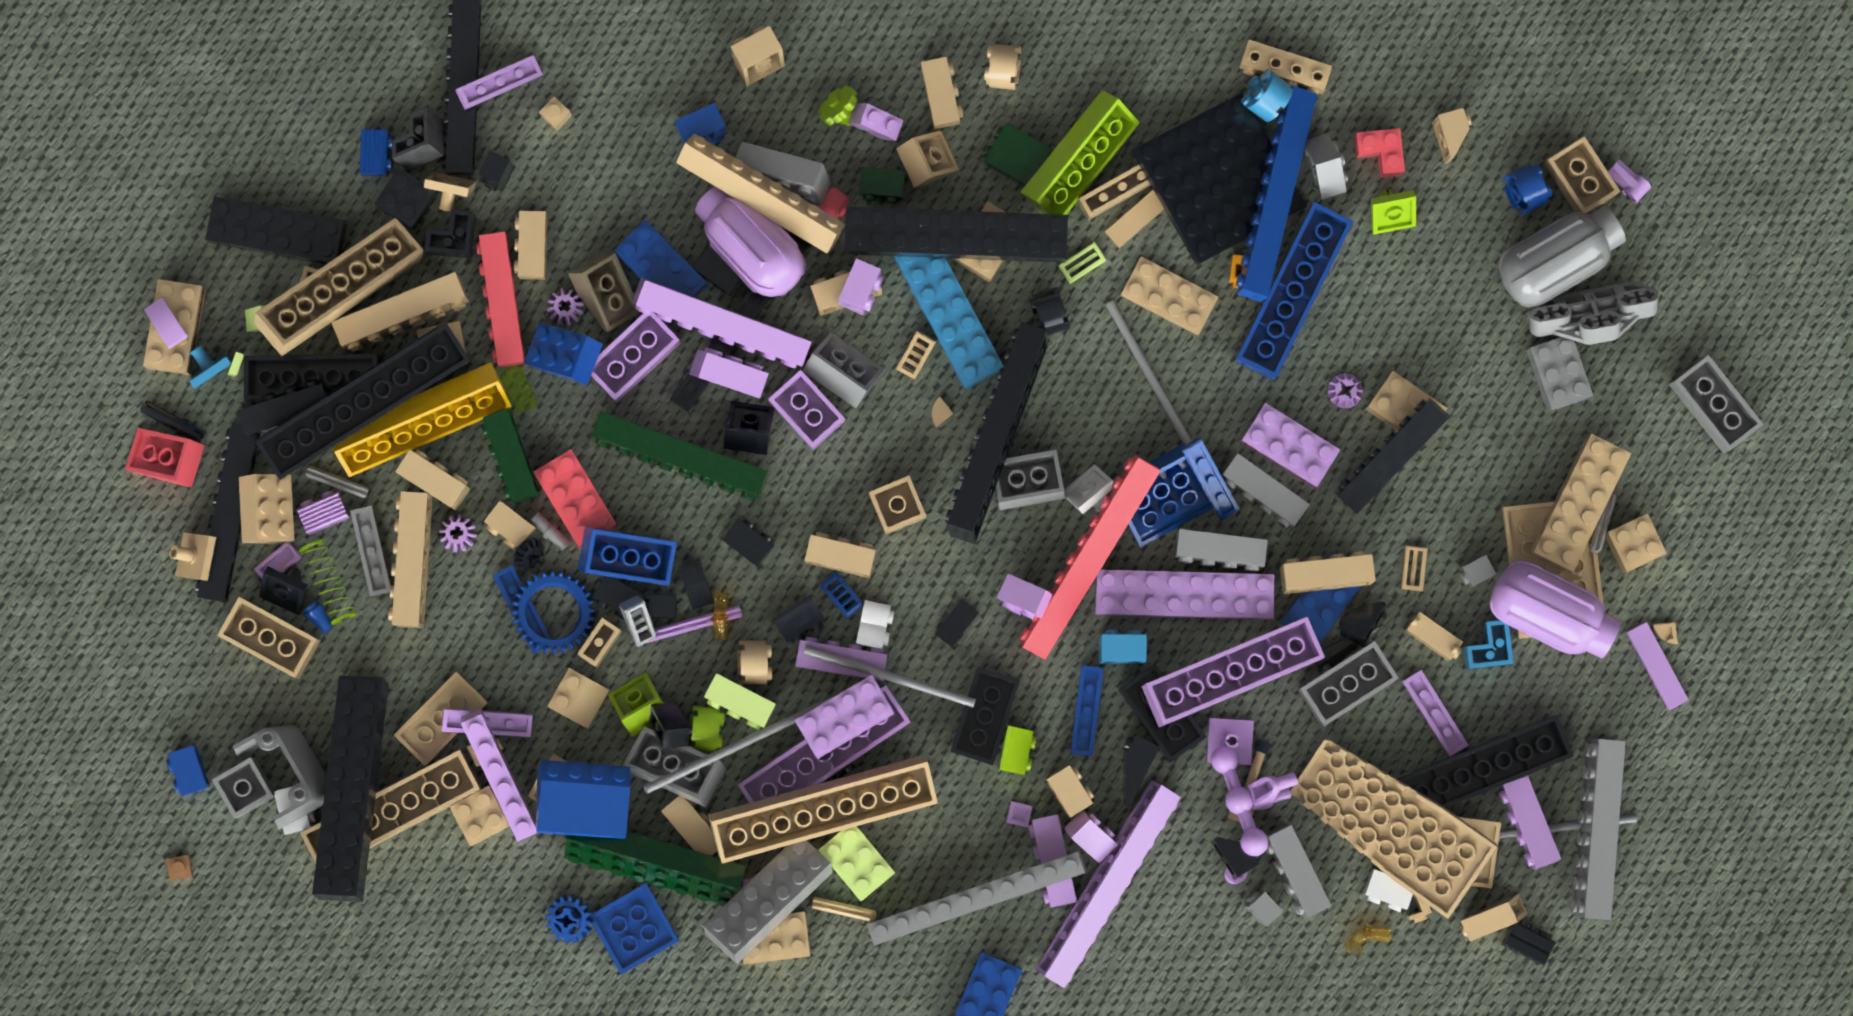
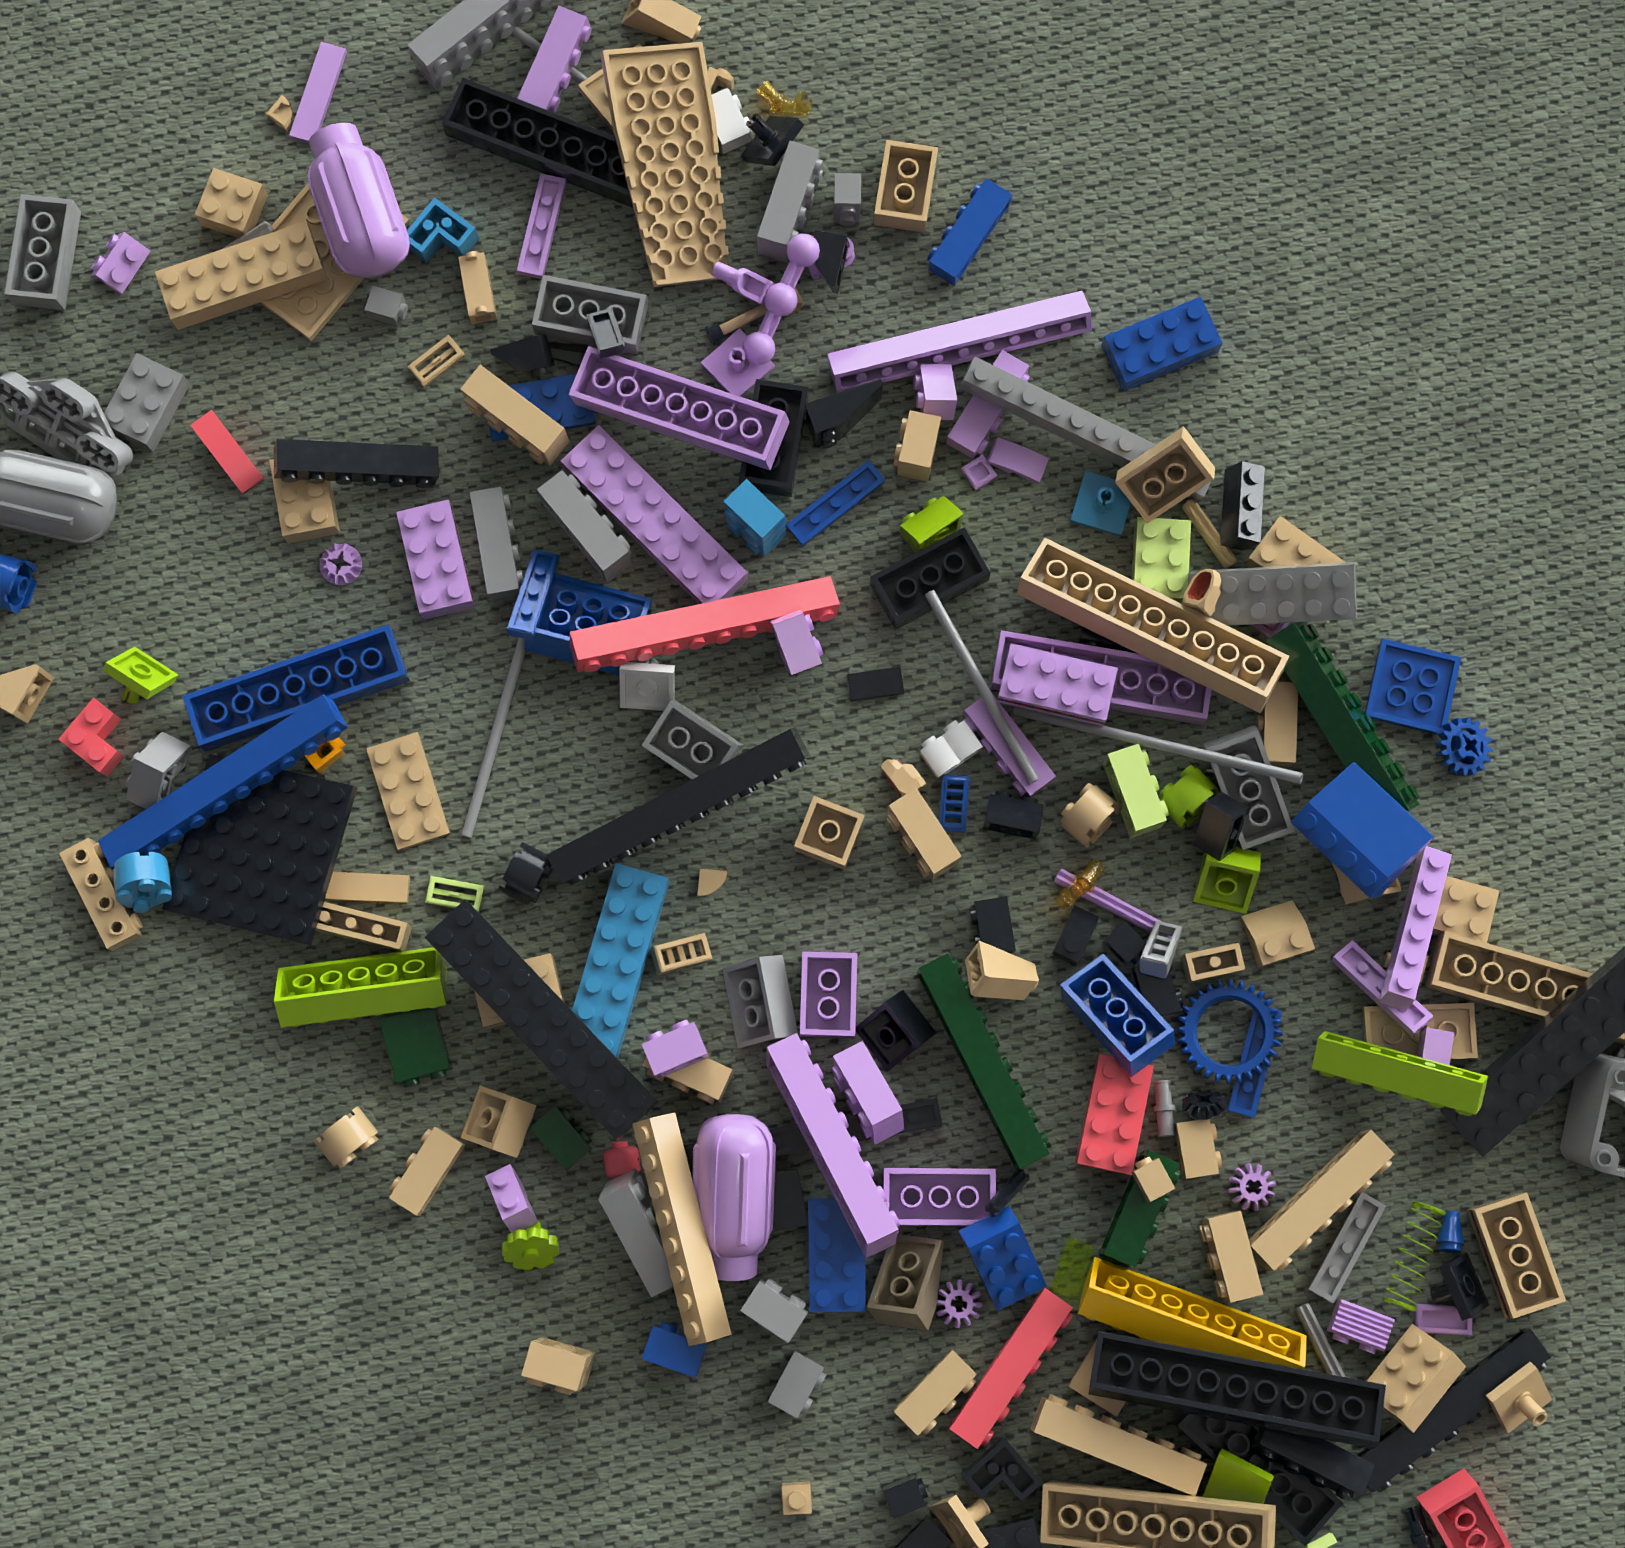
camera: 130 degrees left, 5 degrees down
(314, 353) = (1237, 1480): none -> lime tile
(423, 713) = (1435, 1045): none -> lavender brick
(431, 677) = (1399, 1073): none -> lime brick
(518, 475) = (1152, 1178): none -> tan brick
(595, 392) = (1007, 1192): none -> black axle
(615, 175) = (796, 1385): none -> light grey brick
(664, 200) = (775, 1310): none -> light grey brick
(718, 515) = (999, 973): none -> tan slope
(809, 856) = (1203, 592): none -> tan rock
(839, 942) = (1242, 506): none -> black brick
(886, 581) = (902, 776): none -> tan rock
(900, 908) = (1165, 475): none -> tan brick
(925, 866) = (1101, 505): none -> dark azure tile
(1002, 843) = (1017, 459): none -> lavender slope
(1170, 963) = (969, 232): none -> blue brick
(1236, 952) = (905, 186): none -> tan brick
(1322, 675) = (606, 333): none -> tile
(1348, 902) = (770, 138): none -> black tile
(1480, 391) = (227, 451): none -> coral slope
(1666, 444) = (119, 262): none -> lavender bracket

